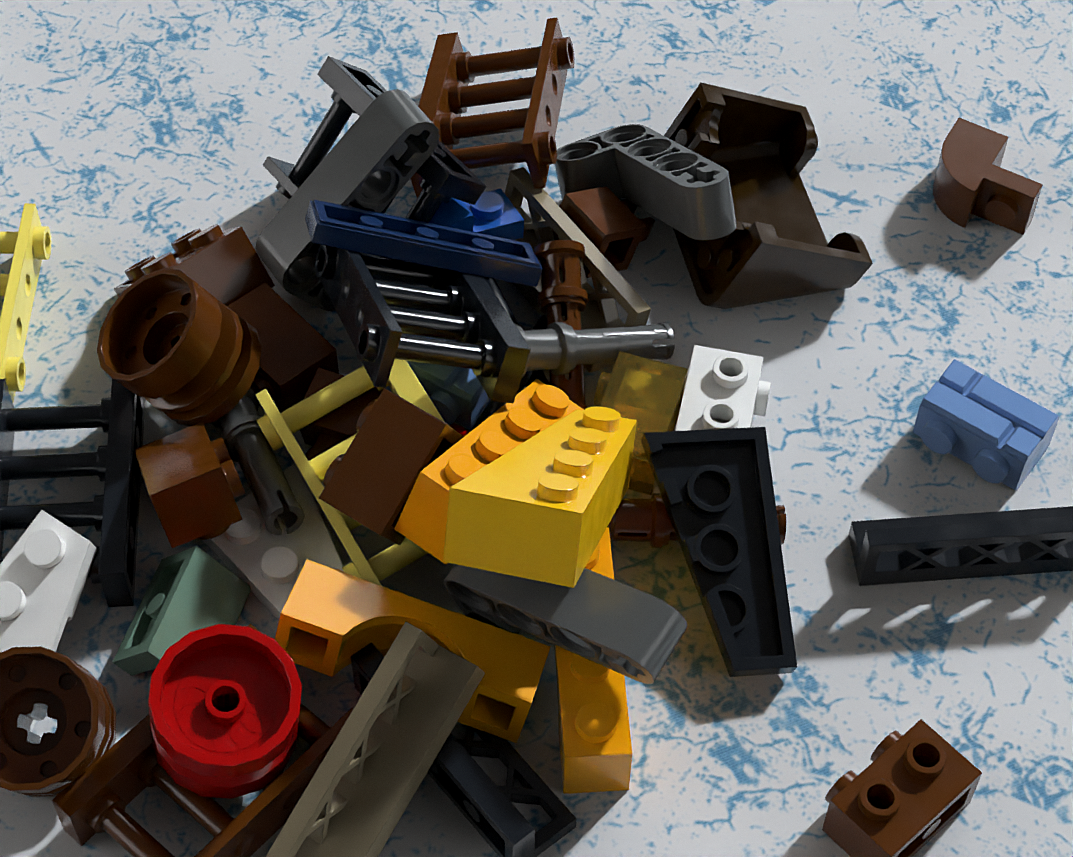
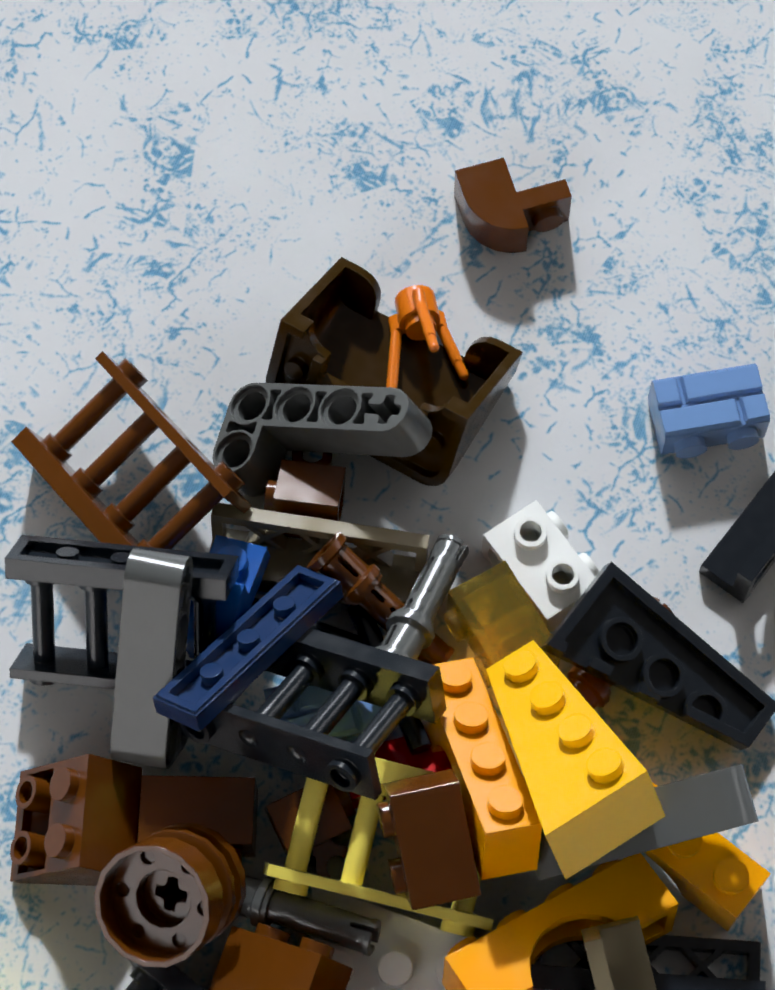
camera: 45 degrees left, 15 degrees up
(819, 193) = (420, 320): none -> orange plant

